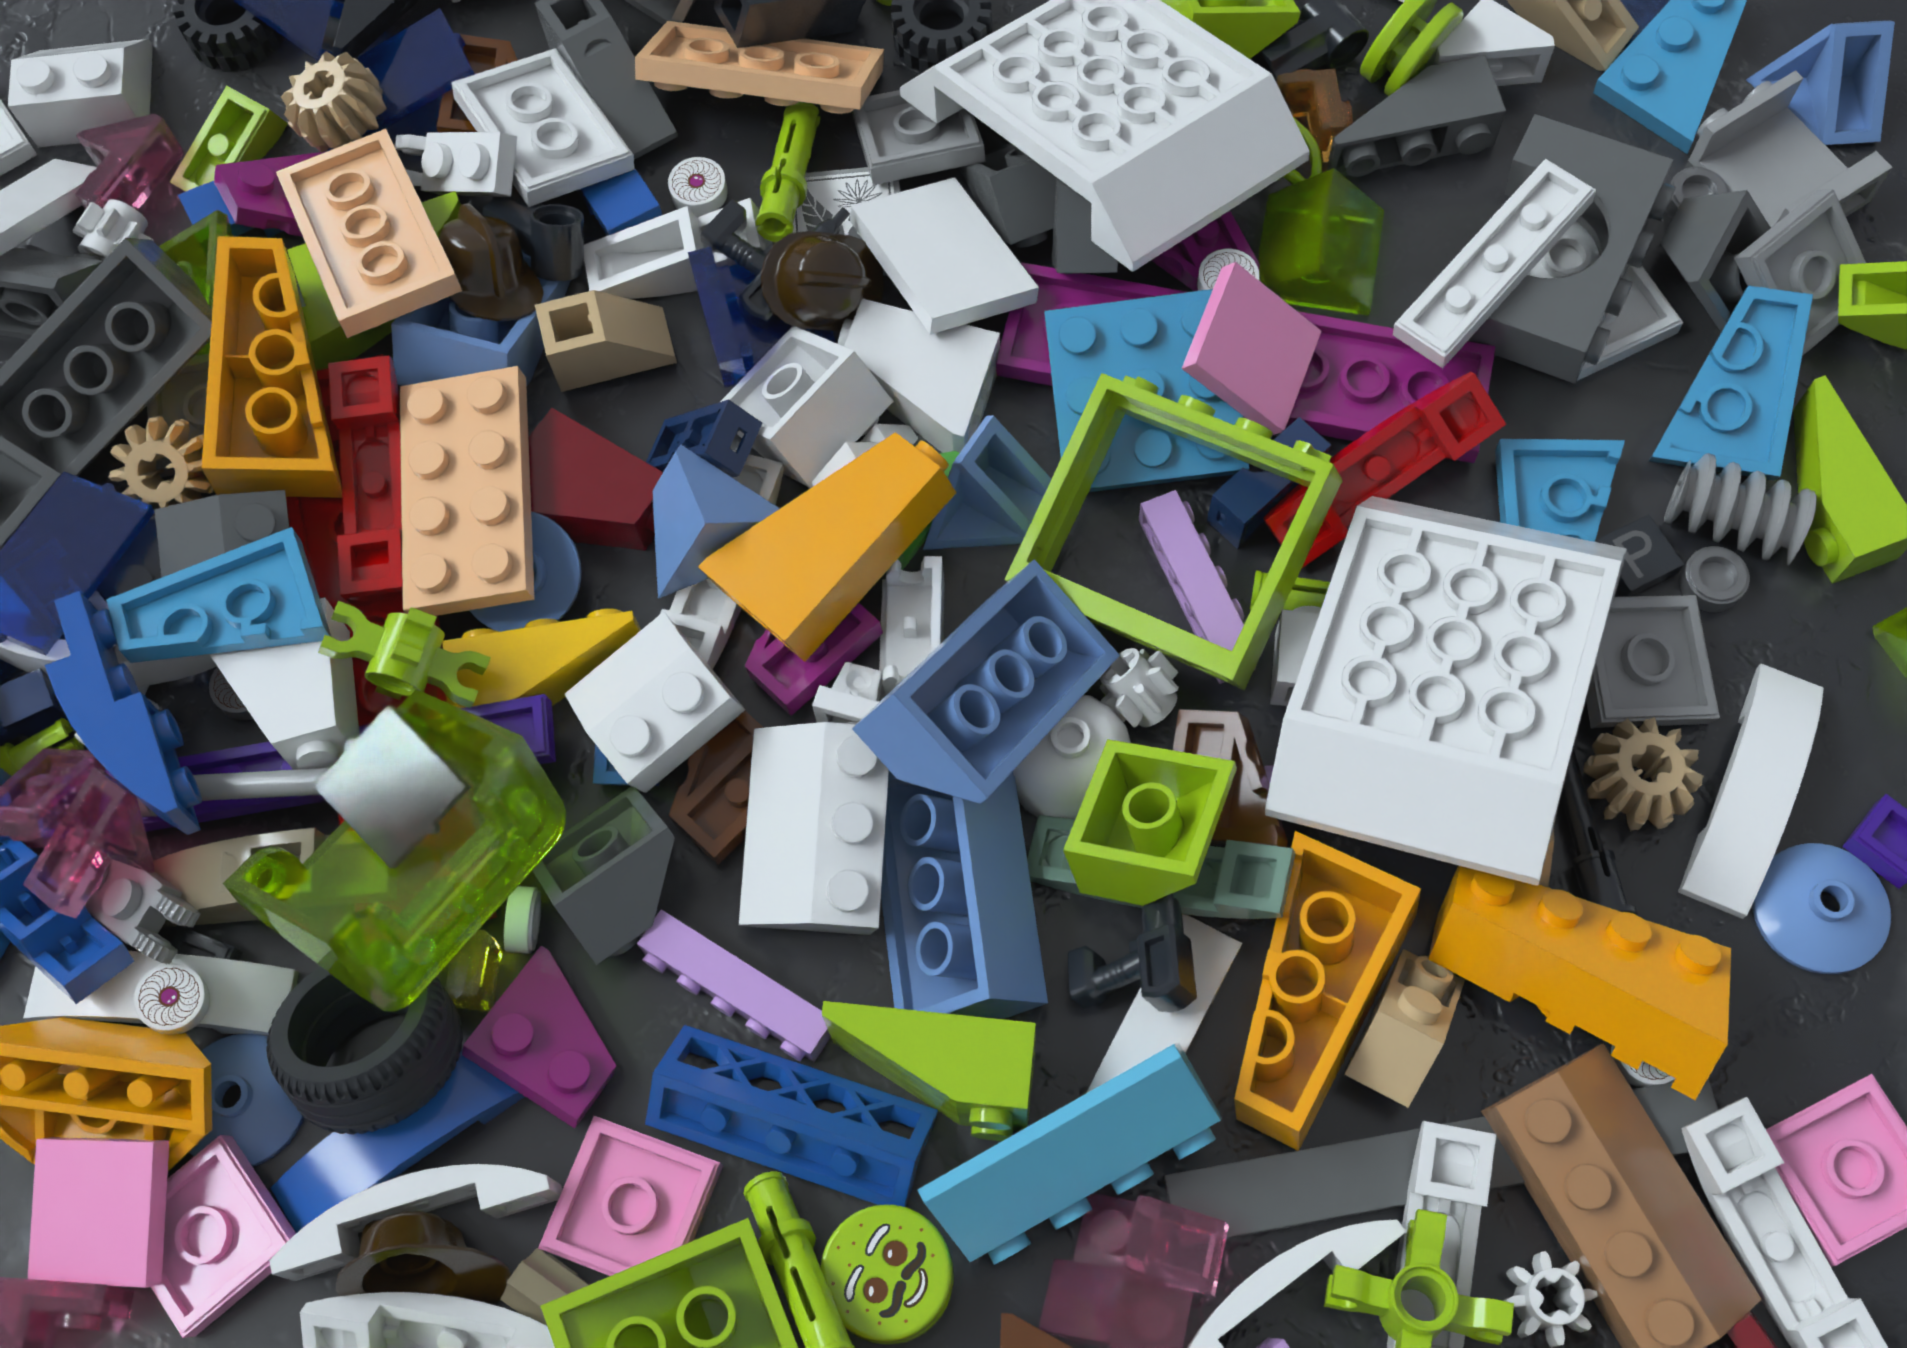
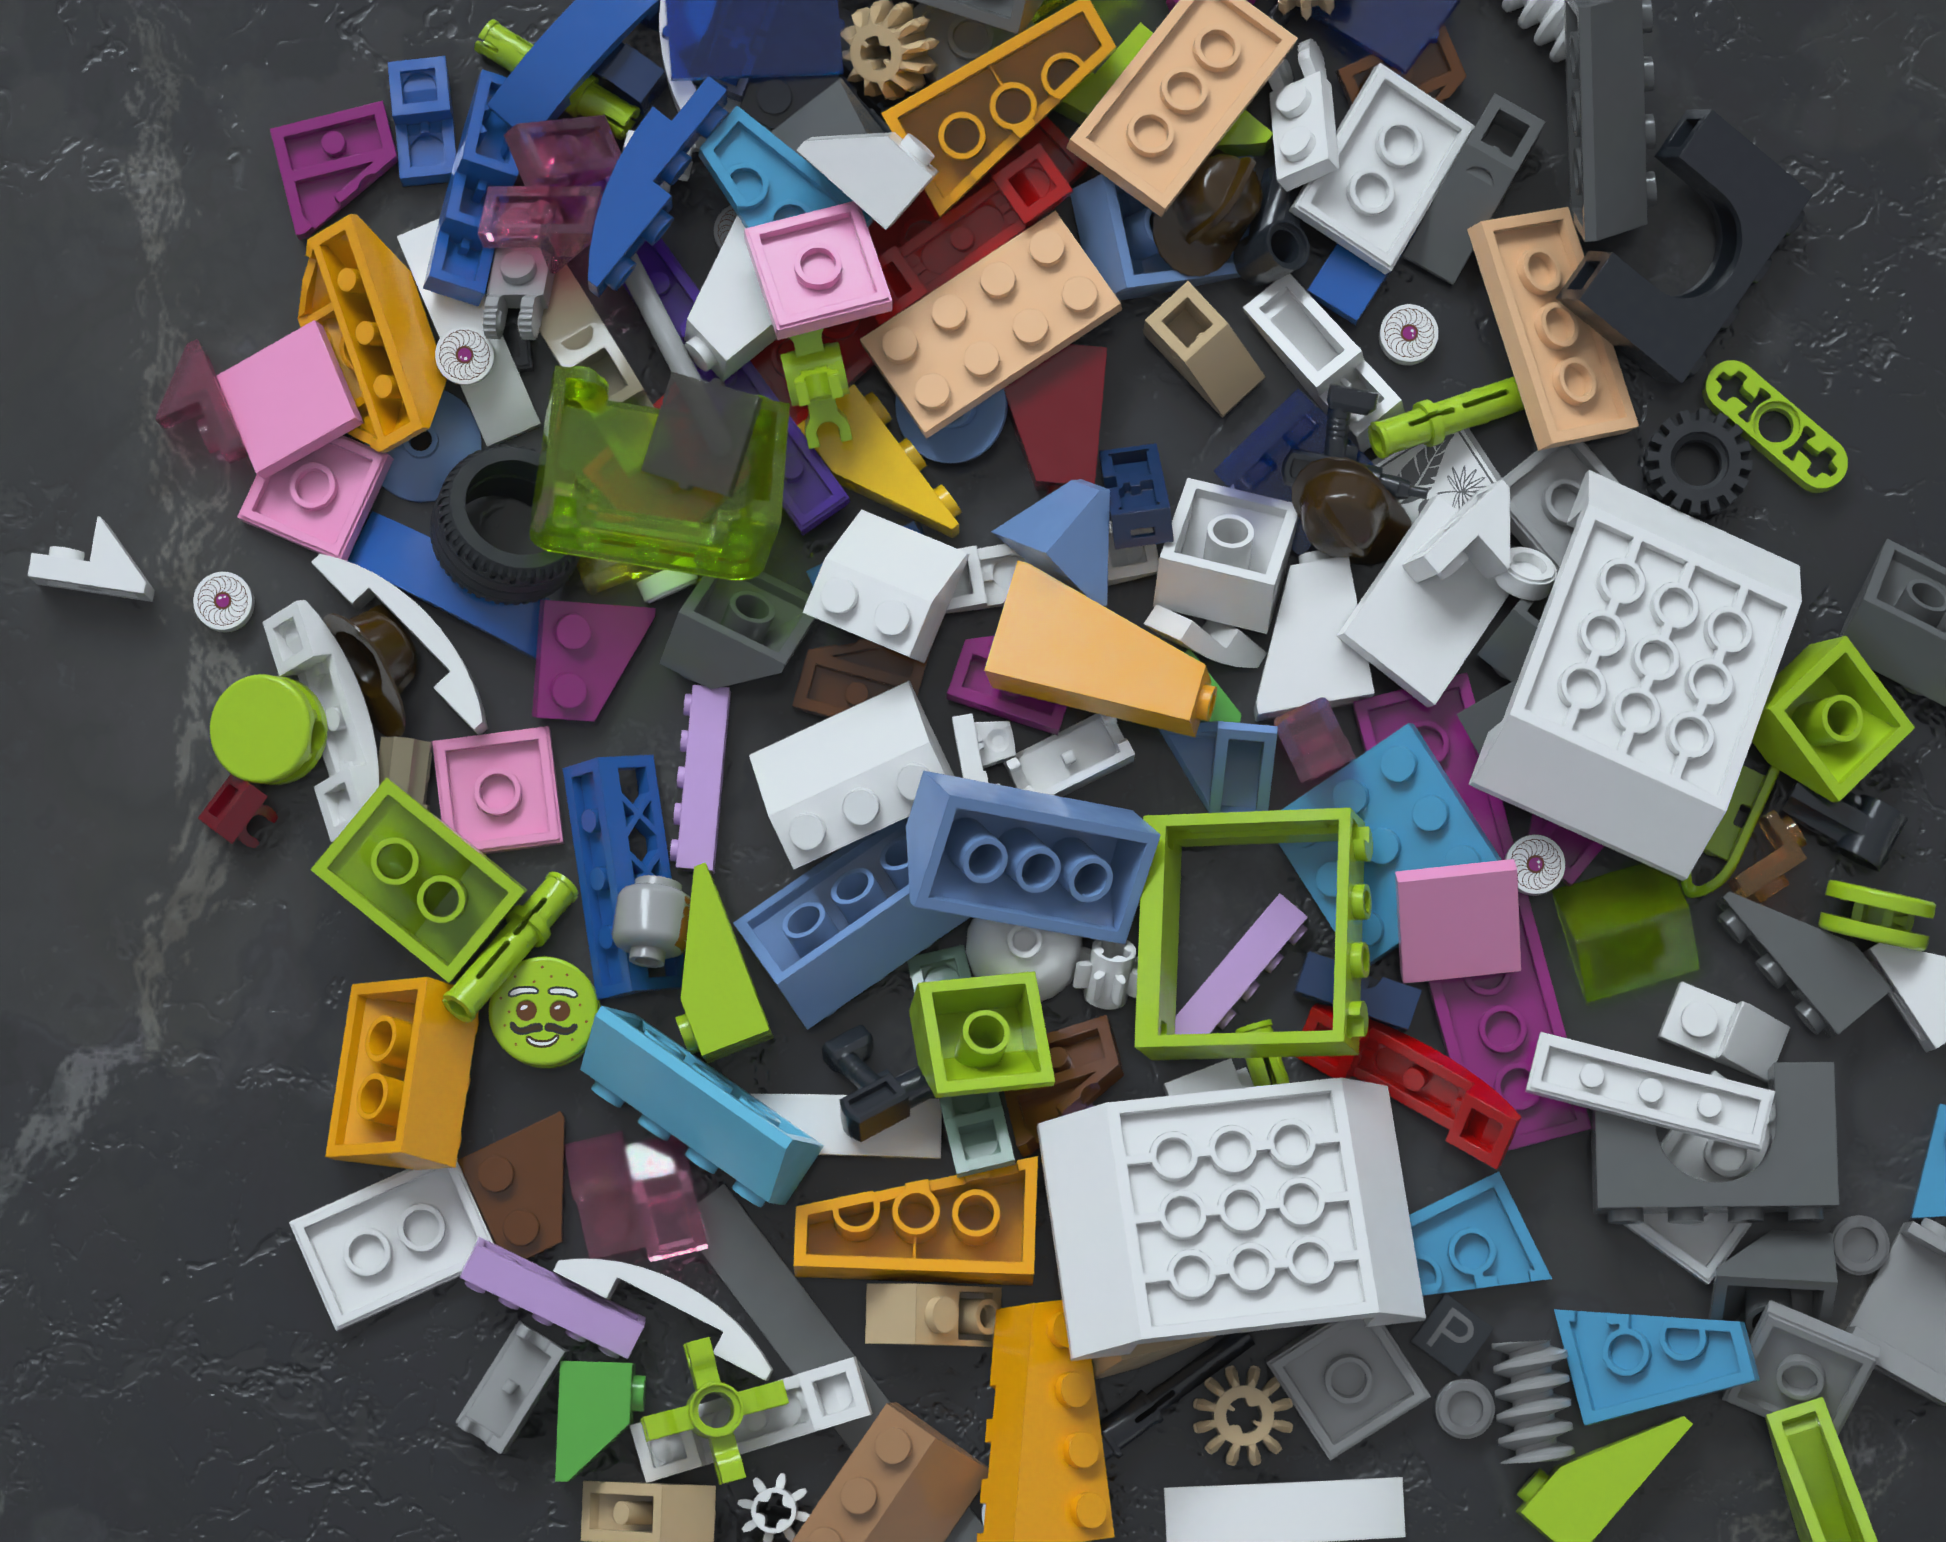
camera: 60 degrees right, 15 degrees up
(242, 493) = (874, 170): none -> white slope
(303, 589) = (818, 270): none -> bright pink tile
(853, 1098) = (651, 920): none -> light grey head
(906, 186) = (1474, 533): none -> white slope
(962, 166) = (1529, 574): none -> white tile
(1022, 399) = (1313, 740): none -> clear pink slope
(1446, 216) = (1724, 1031): none -> white slope

